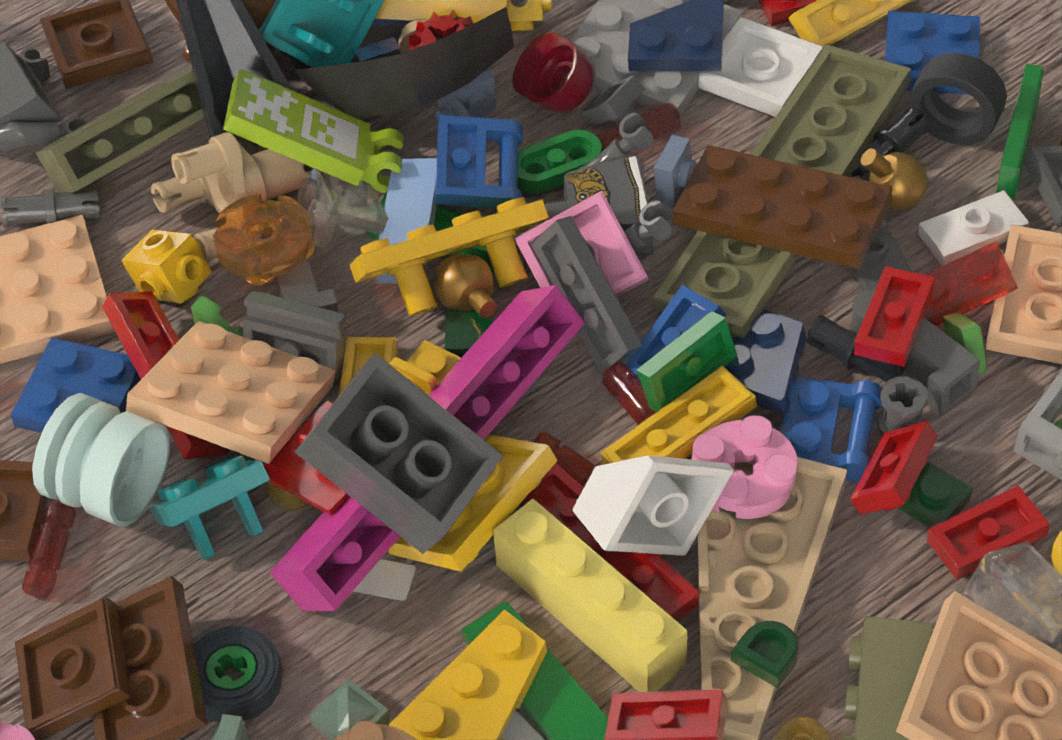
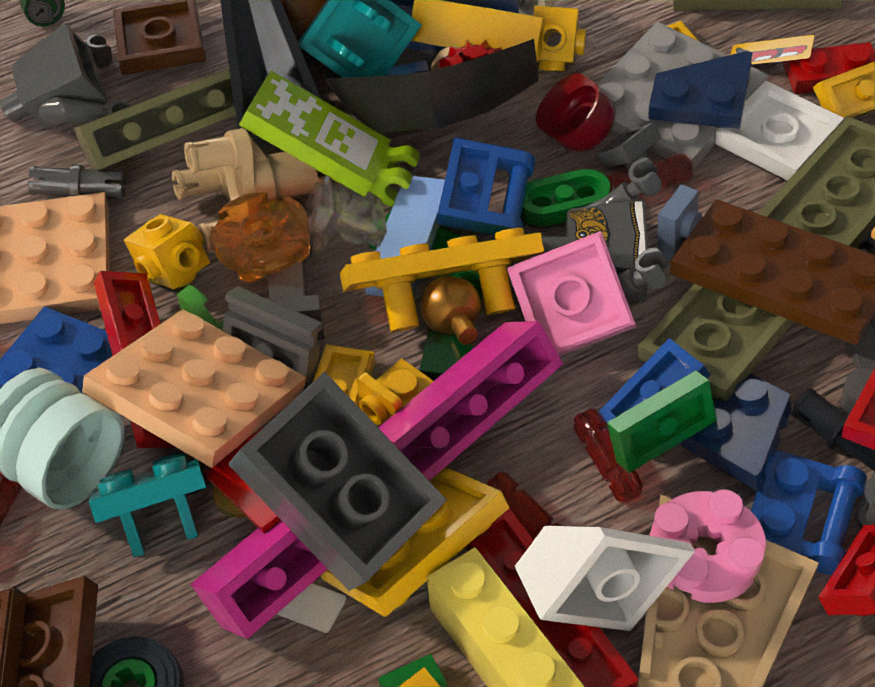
camera: 10 degrees right, 0 degrees up
(471, 100) = (493, 127): sand blue bracket -> none
(581, 281) = (568, 326): dark grey plate -> none
(678, 424) = (636, 492): yellow tile -> none

